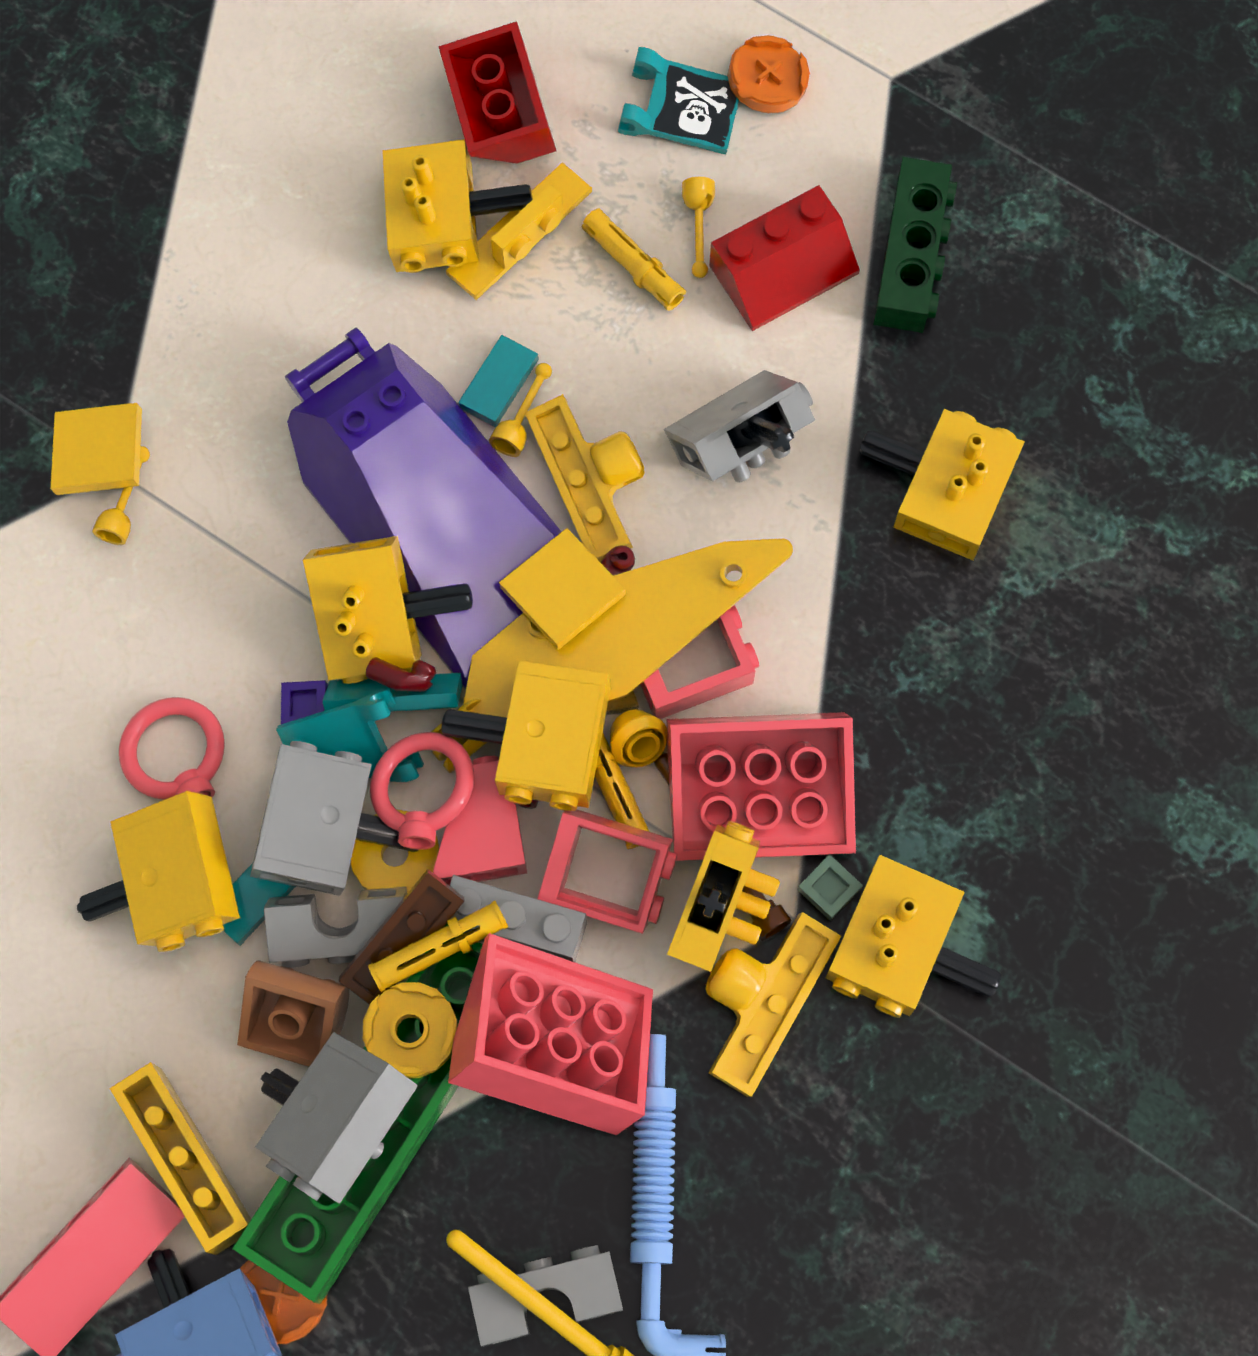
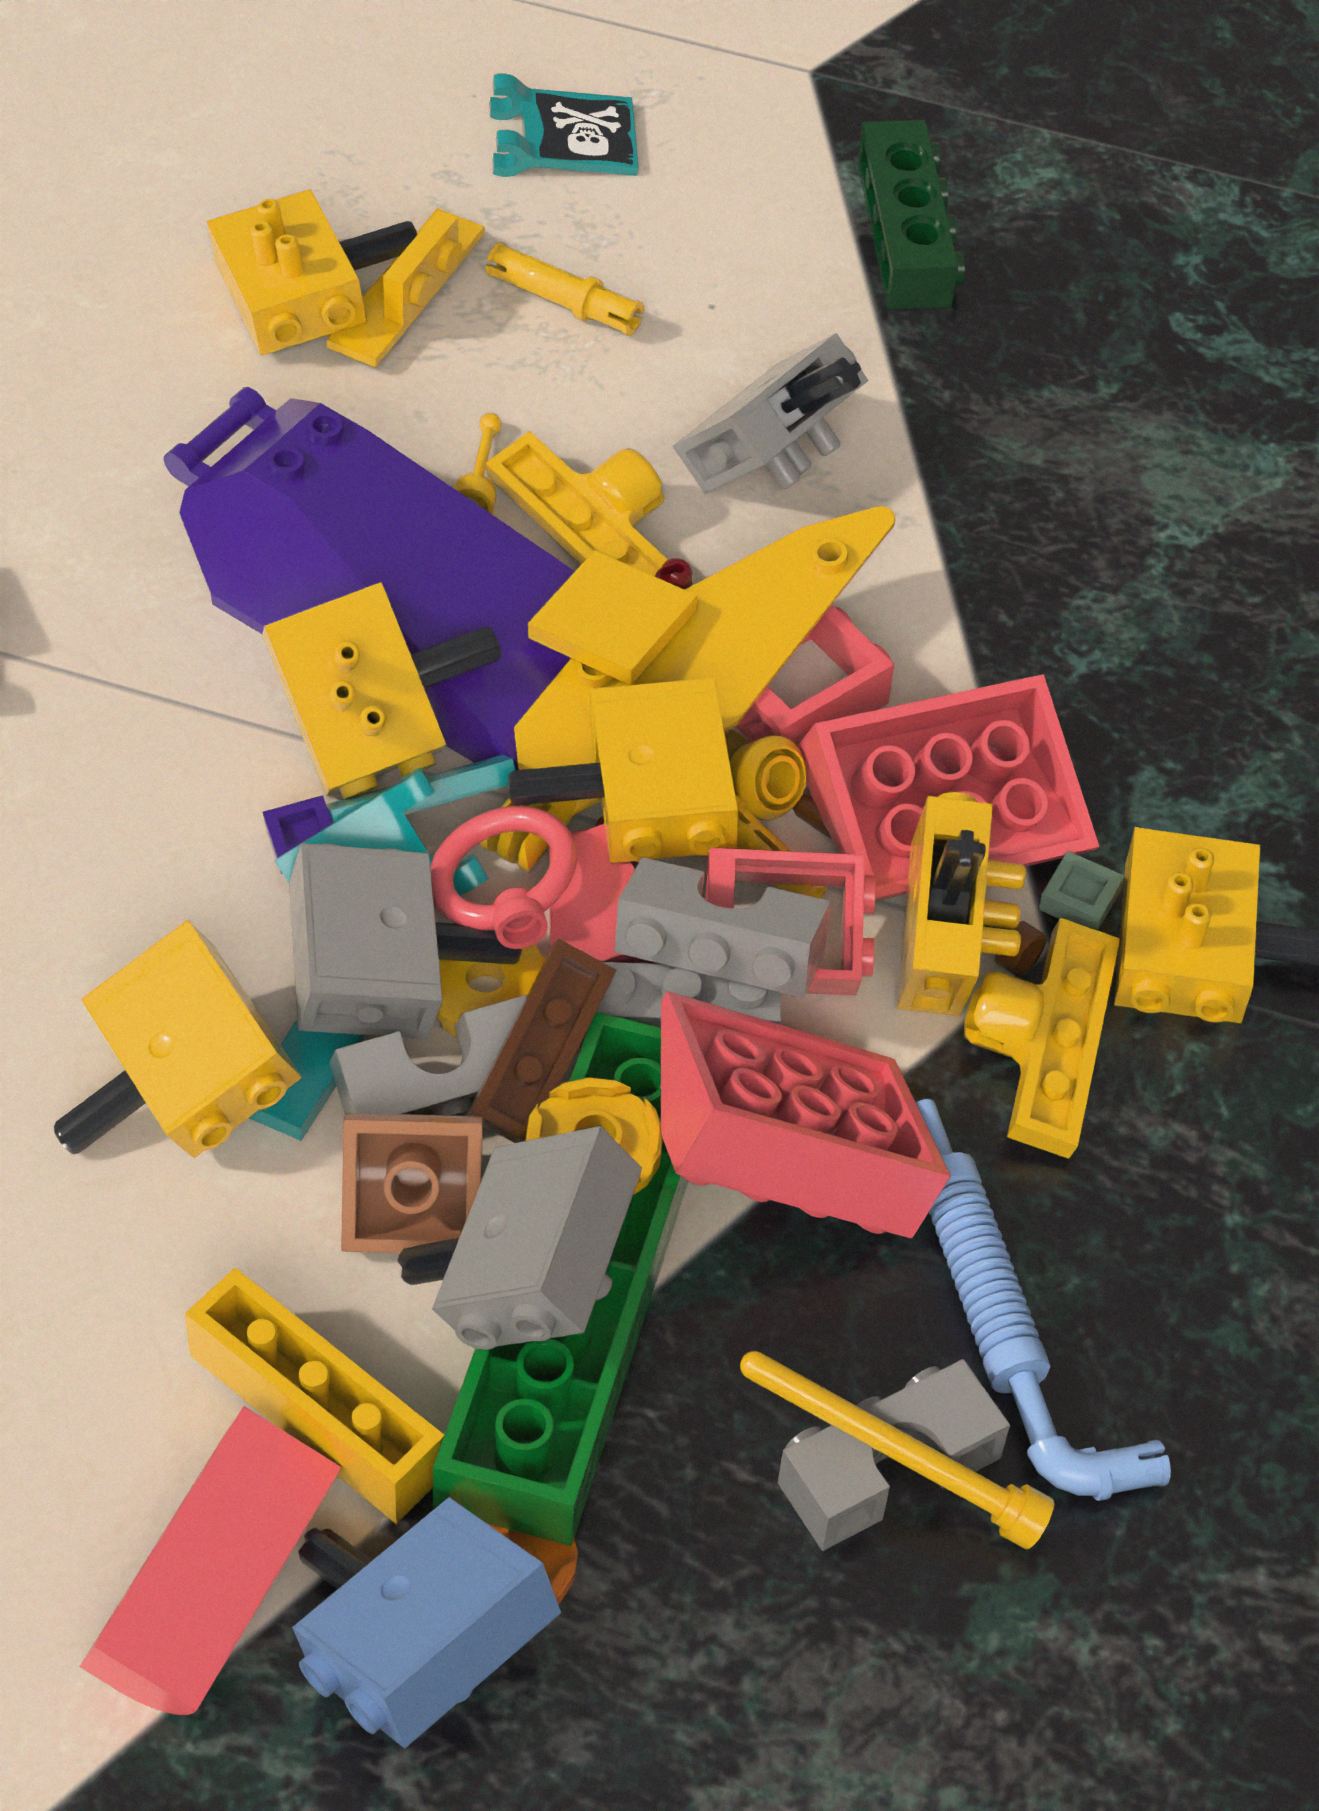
camera: 20 degrees left, 20 degrees down
(191, 780) = (106, 881): coral piece -> none
(388, 972) = (543, 1074): yellow pin -> none
(399, 679) = (450, 754): dark red arm -> none
(497, 96) = (340, 144): red slope -> none
(498, 381) = (441, 434): teal tile -> none
(574, 908) = (762, 945): none -> light grey arch
(698, 195) = (622, 212): yellow hinge -> none
(768, 74) = (660, 85): orange tile -> none
(784, 258) = (752, 252): red slope -> none
(953, 480) = (1058, 436): yellow piece -> none

